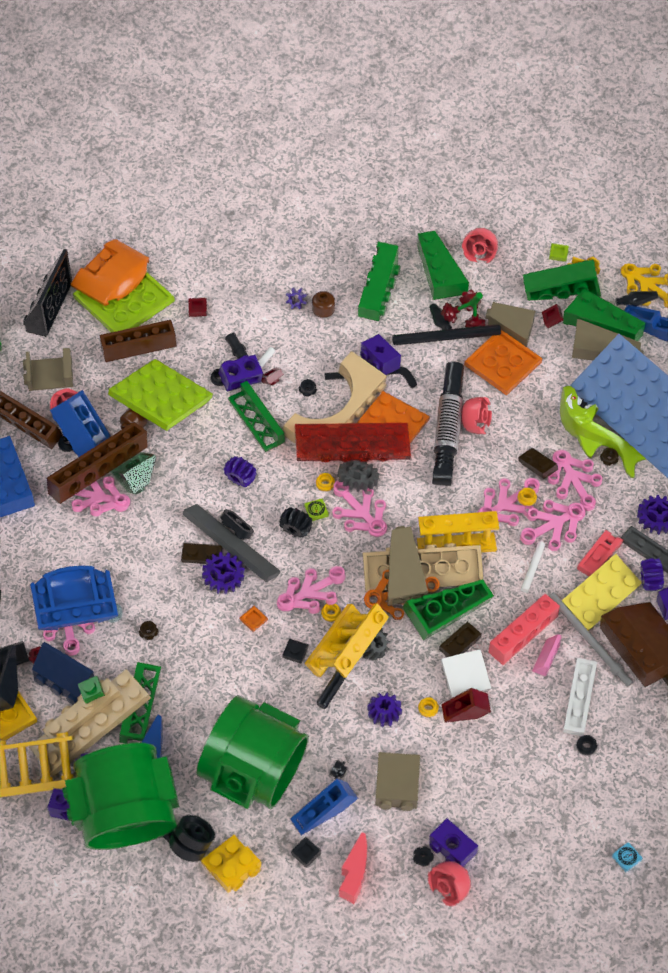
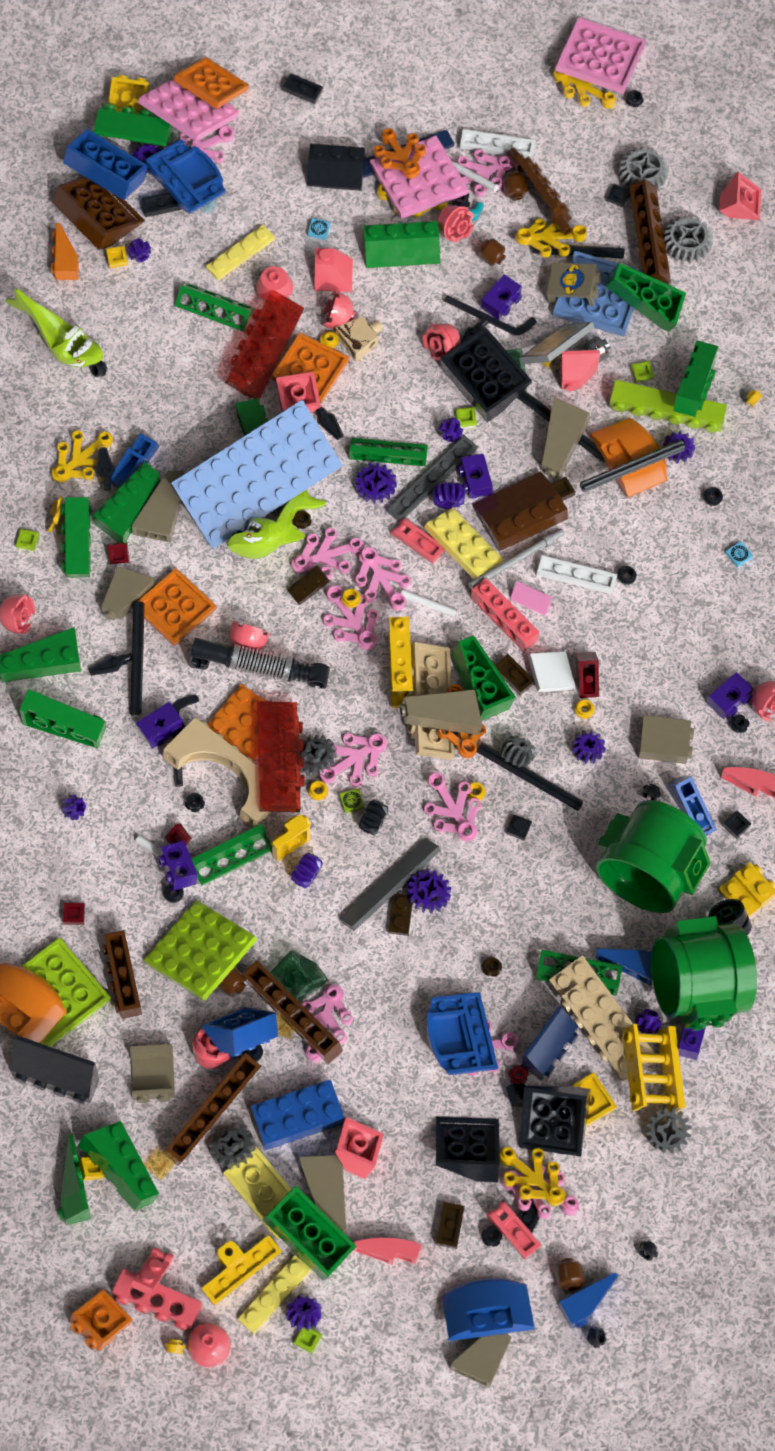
camera: 90 degrees left, 10 degrees up
(91, 689) = (578, 1008): green plate -> none
(237, 348) = (138, 871): black pin -> none
(237, 524) = (367, 878): black plate -> none
(253, 618) = (480, 865): orange tile -> none
(271, 455) = (295, 835): none -> yellow plate
(323, 304) = (85, 779): reddish brown head -> none
(337, 636) = (503, 782): yellow fence -> none
(469, 301) = (119, 629): dark red plant -> none

